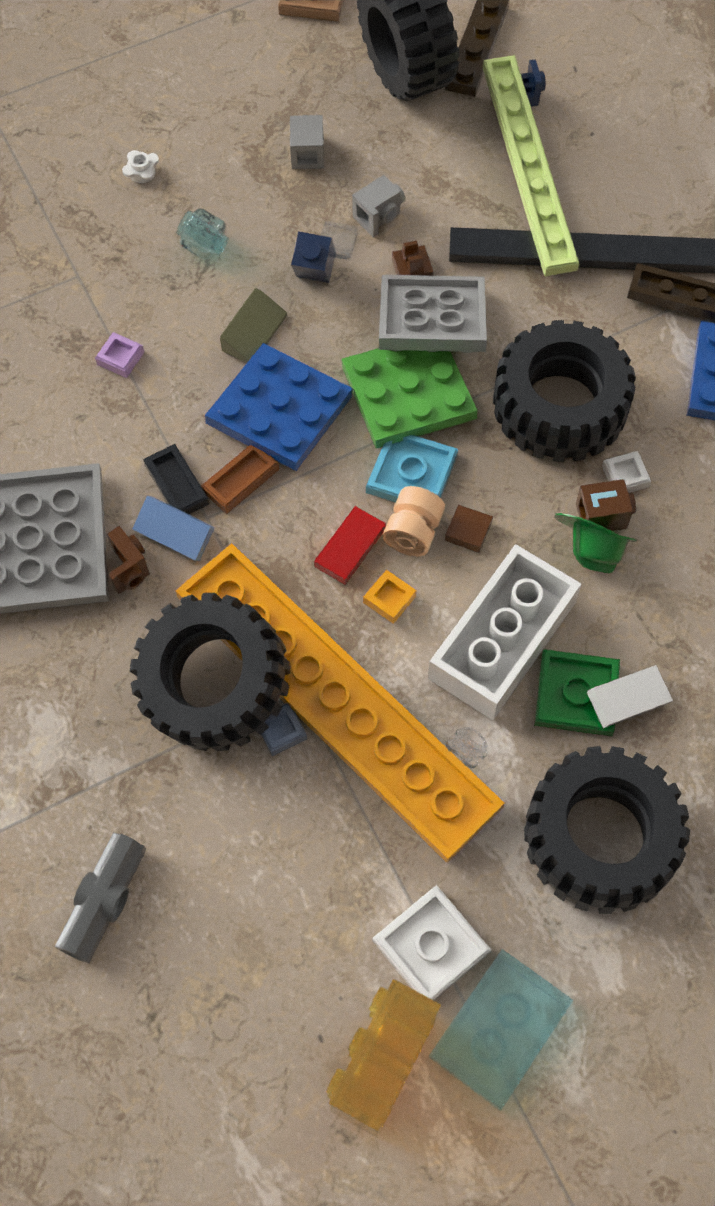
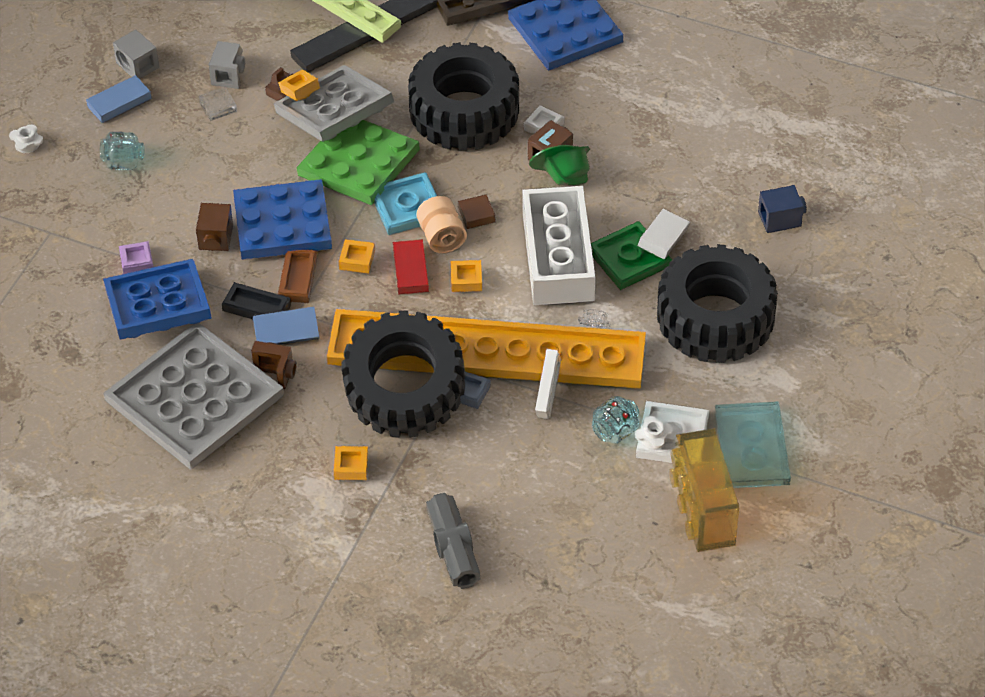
camera: 40 degrees left, 15 degrees down
(85, 414) = (157, 299): none -> blue plate
(93, 727) = (350, 463): none -> light orange plate
(208, 372) = (214, 227): none -> reddish brown brick
(252, 326) = (215, 182): olive slope -> none
(255, 177) = (118, 99): none -> medium blue tile
(307, 497) = (356, 256): none -> light orange plate
(313, 257) = (218, 117): dark blue brick -> none
(345, 791) = (548, 384): none -> white tile
(380, 886) = (615, 419): none -> clear light blue head
(396, 947) = (655, 439): none -> white plate
(413, 272) = (299, 85): none -> light orange plate

